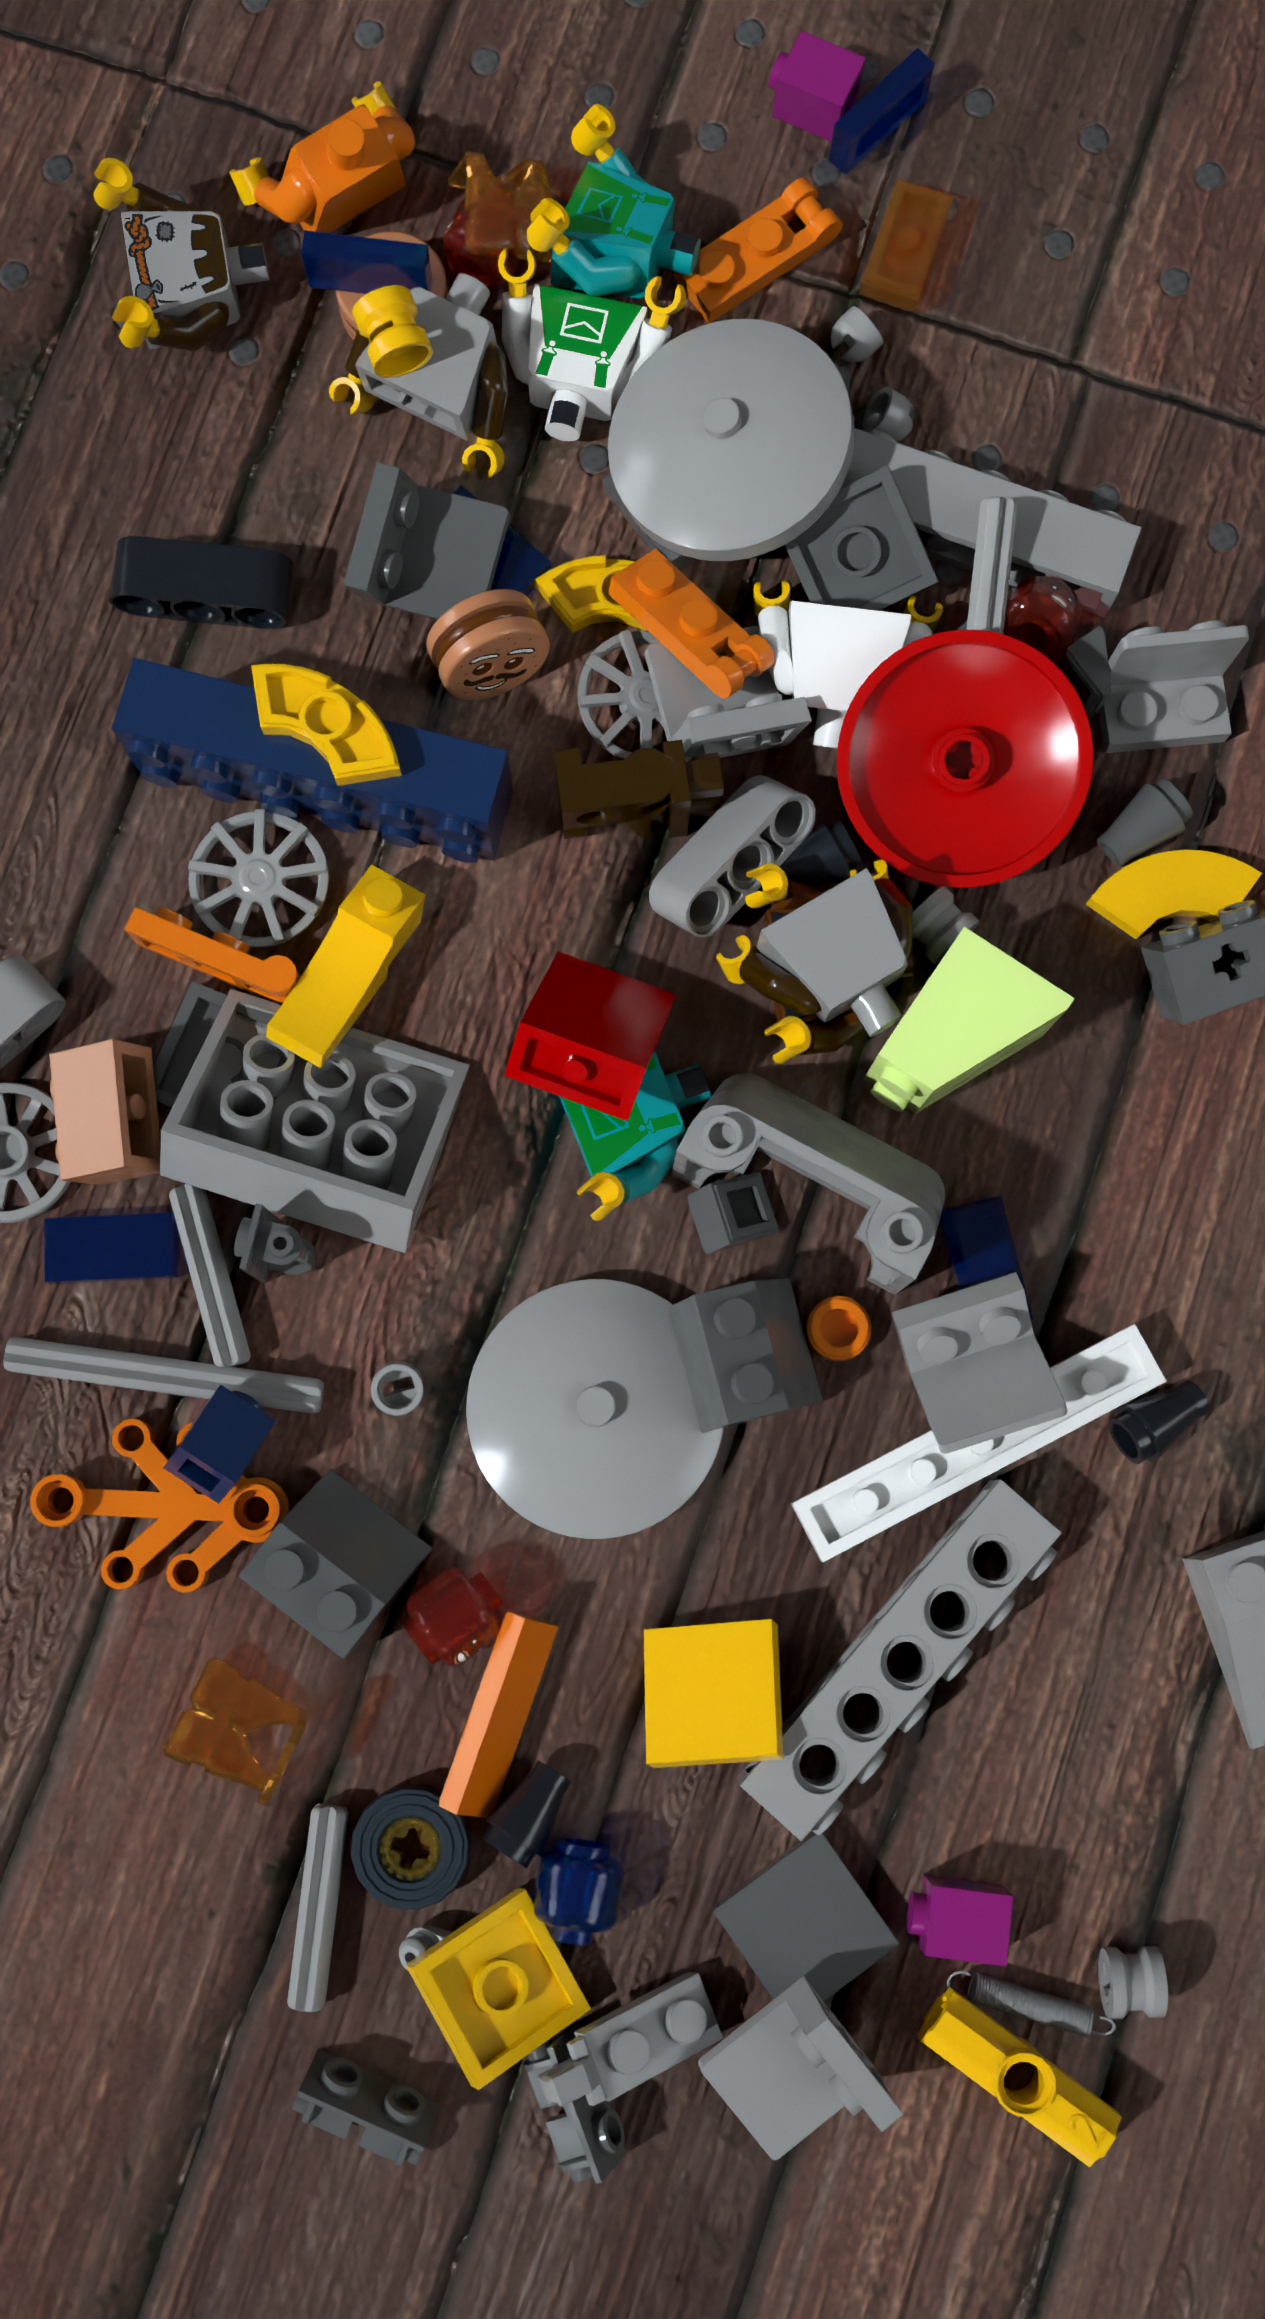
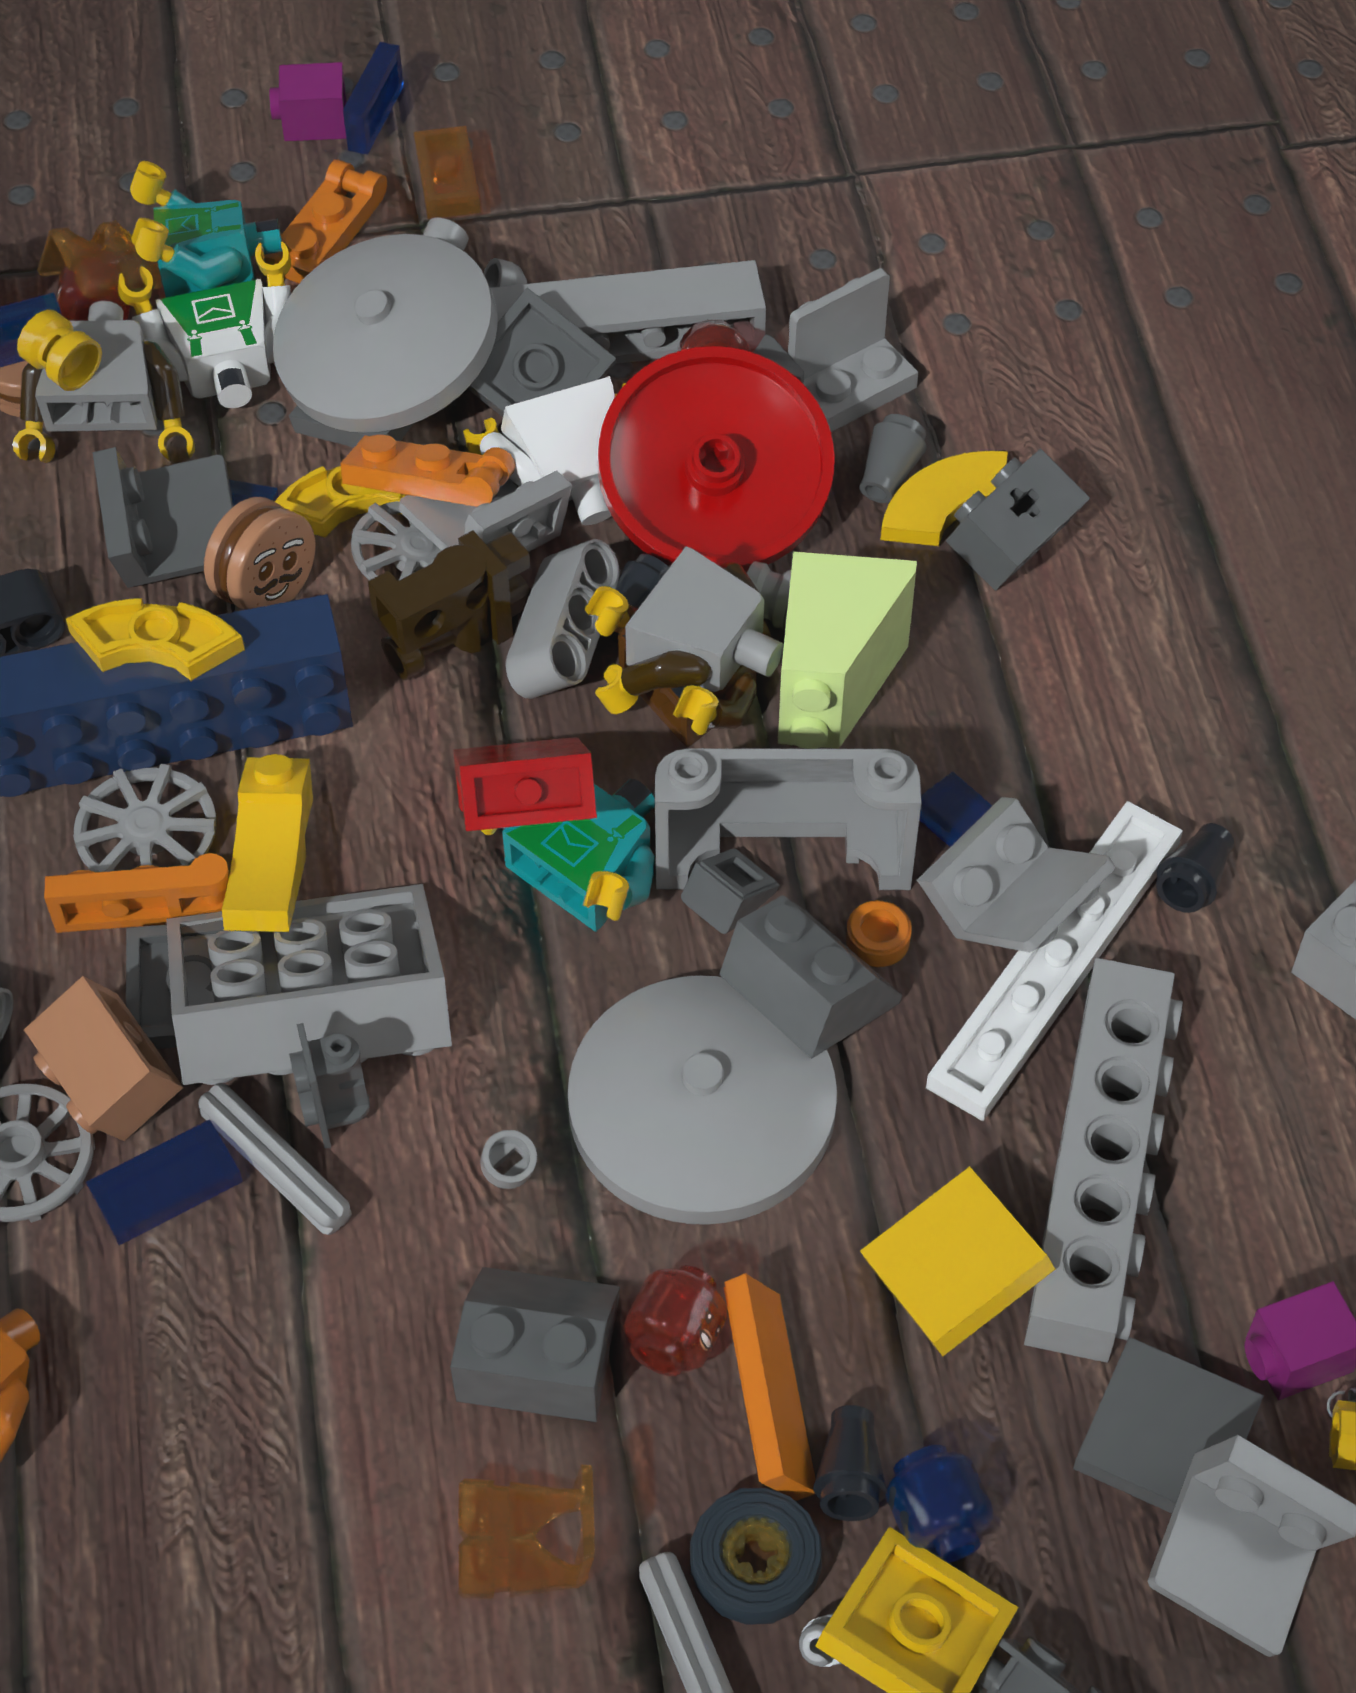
camera: 25 degrees left, 25 degrees down
(160, 1374) = (273, 1263): light grey axle -> none
(175, 1507) = (346, 1370): orange plant -> none
(220, 1443) = (366, 1274): dark blue brick -> none
(634, 2043) = (1078, 1603): light grey hinge -> none
(992, 564) = (648, 315): light grey axle -> none

